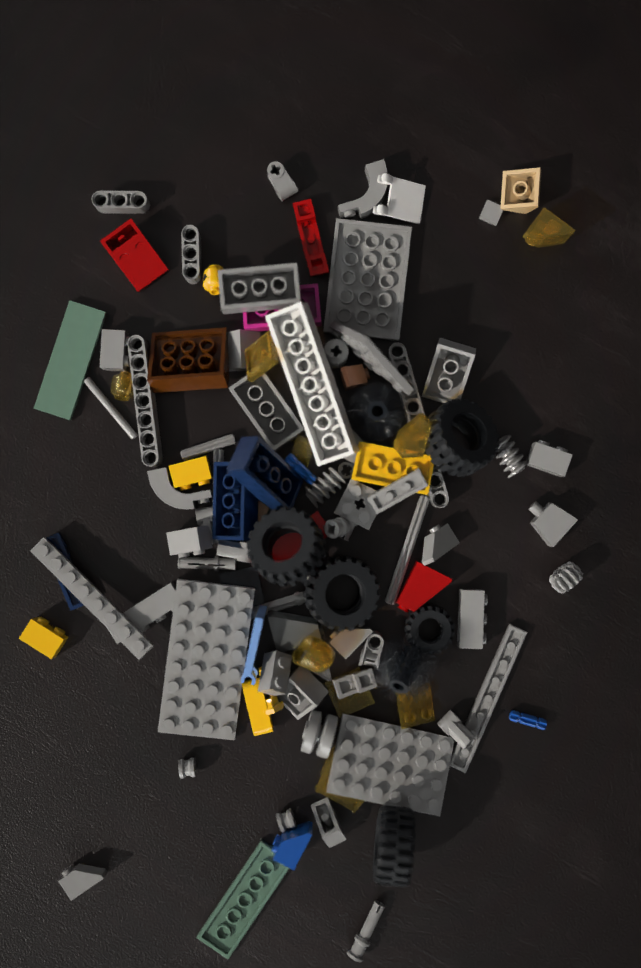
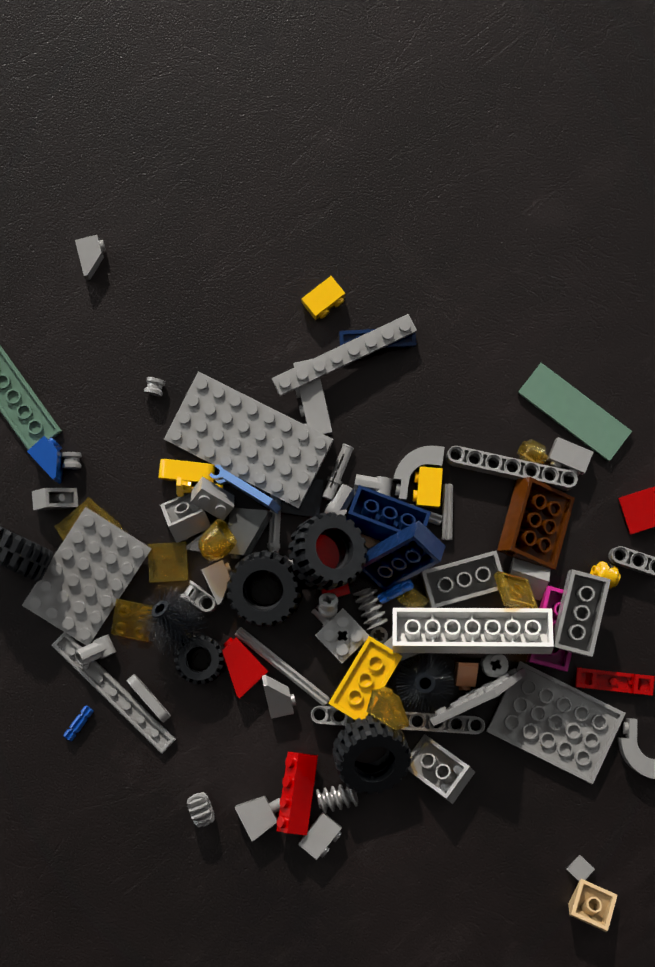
camera: 105 degrees right, 5 degrees down
(111, 409) = (516, 433): light grey bar -> none
(189, 540) = (365, 463): light grey brick -> none
(318, 733) = (141, 519): light grey wheel -> none
(354, 683) = (175, 570): light grey slope -> none
(397, 490) = (342, 675): light grey tile -> none
(404, 199) = (622, 786): white flag -> none
(471, 618) = (194, 704): light grey brick -> none
(481, 663) = (148, 697): none -> light grey beam
(519, 494) = (297, 793): none -> red brick
(547, 230) = (543, 916): clear yellow slope -> none

